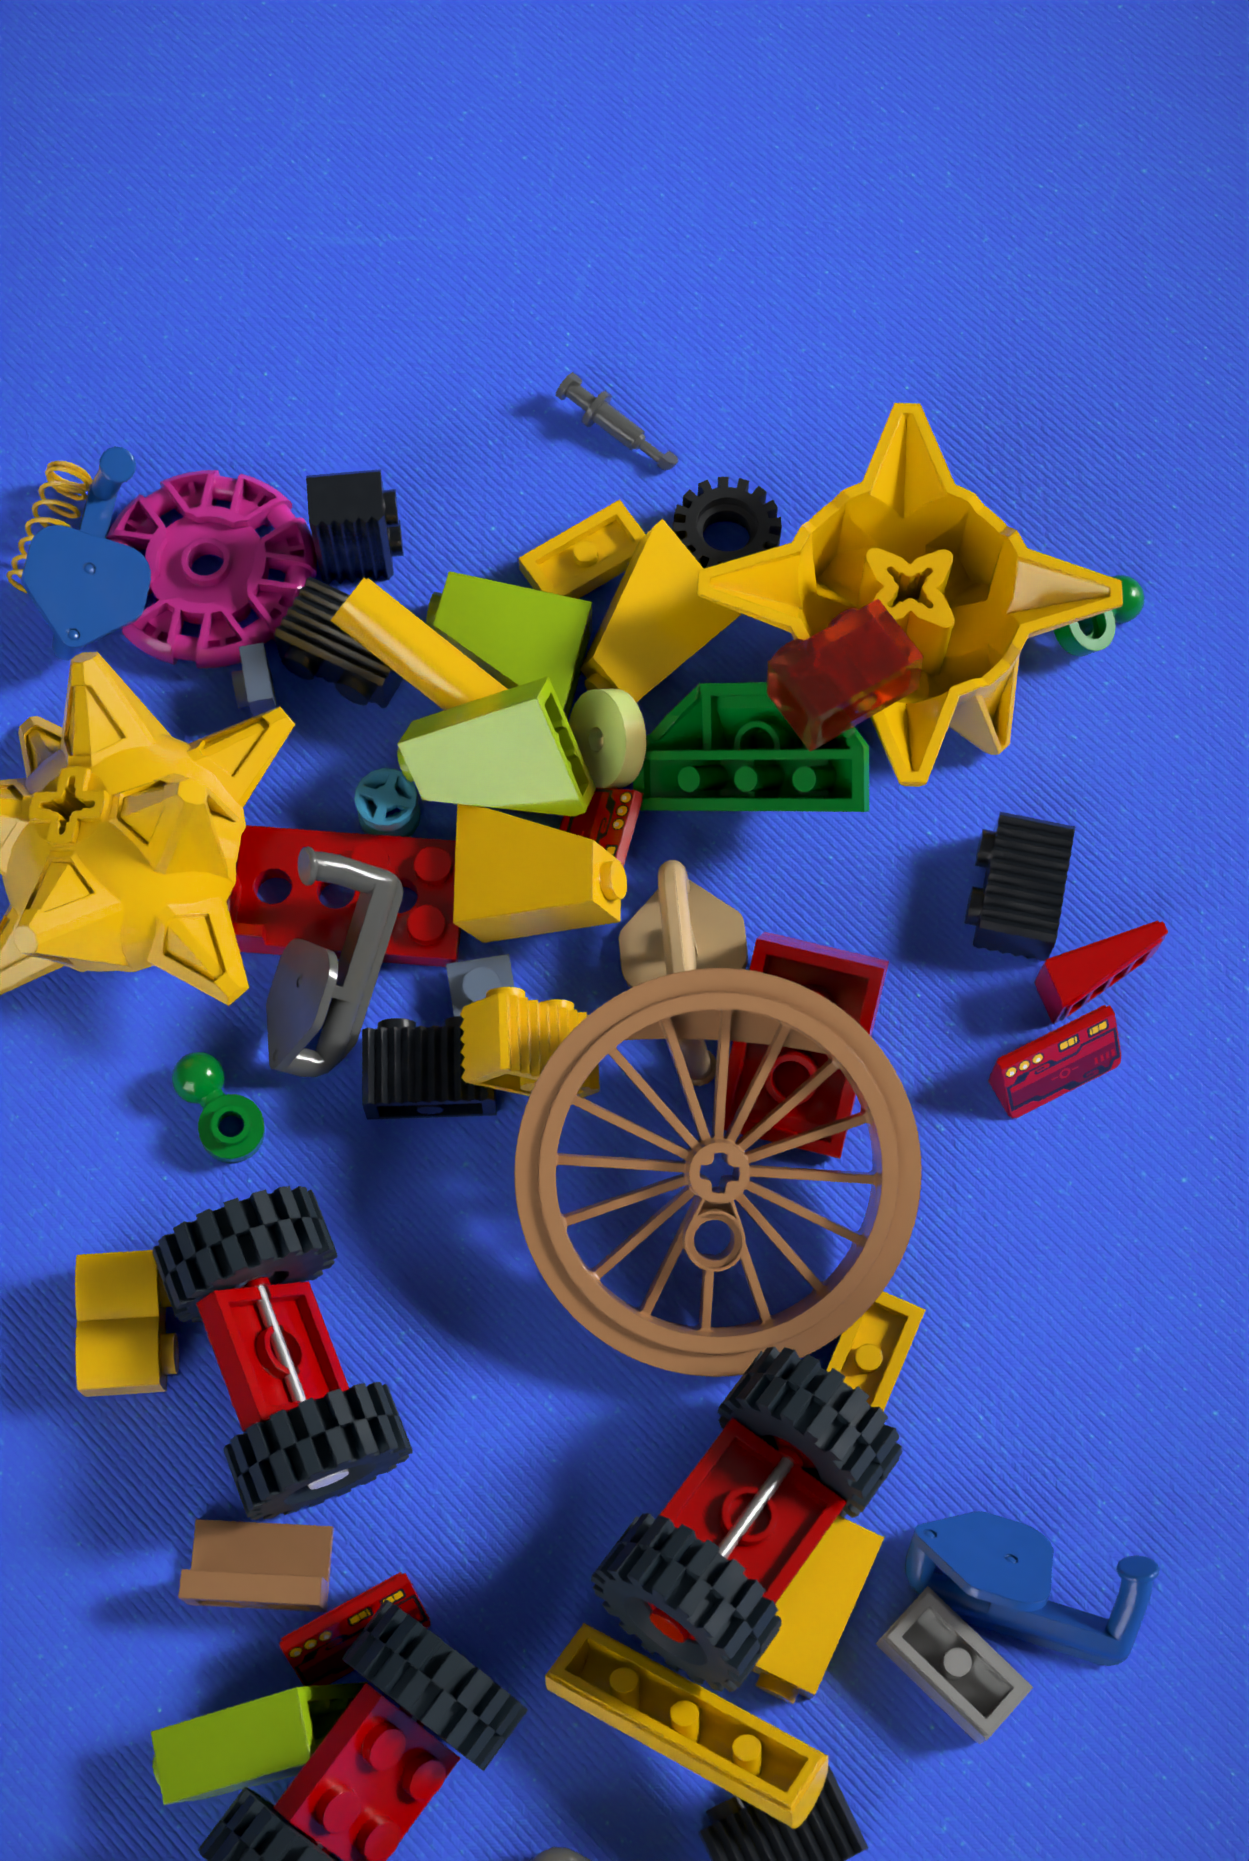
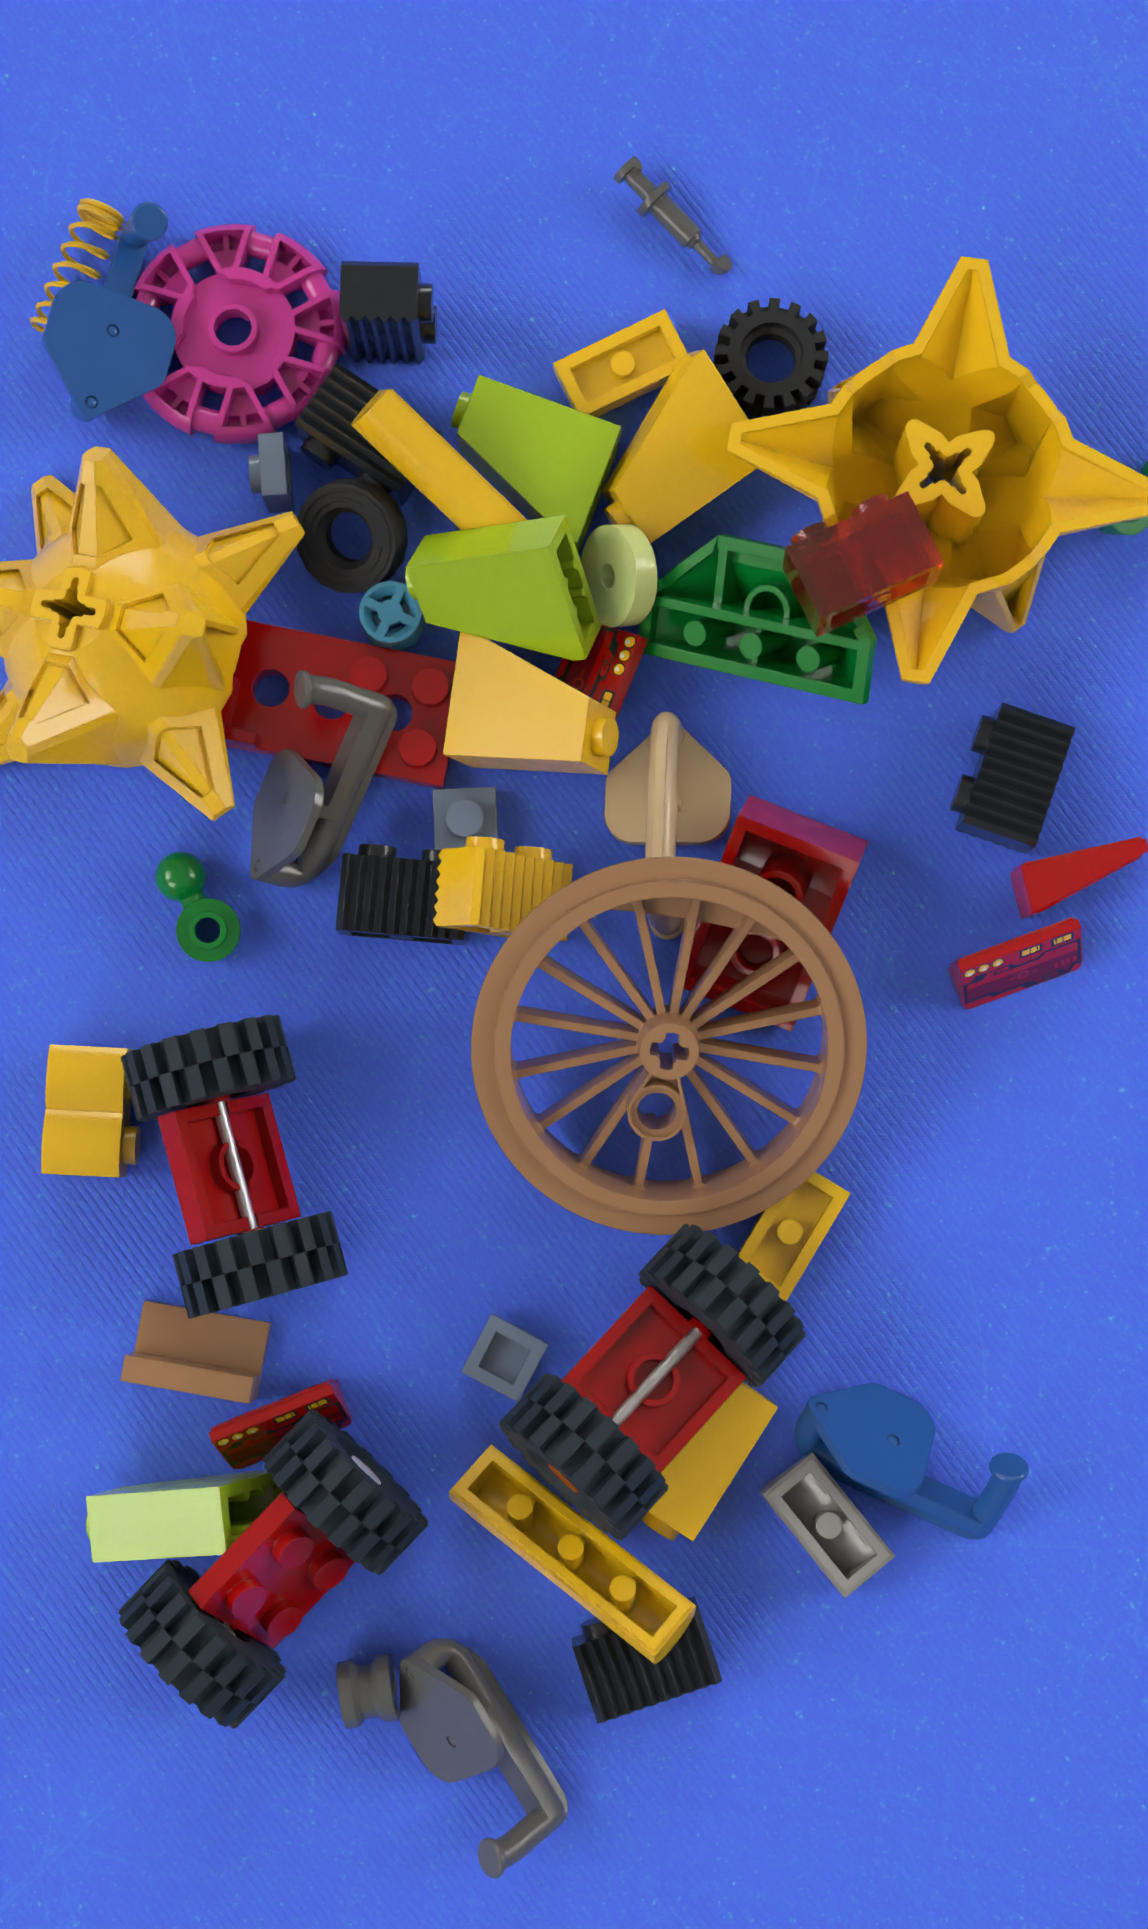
camera: 10 degrees right, 15 degrees up
(375, 726) = (383, 519): none -> black tyre
(586, 1526) = (505, 1357): none -> sand blue plate

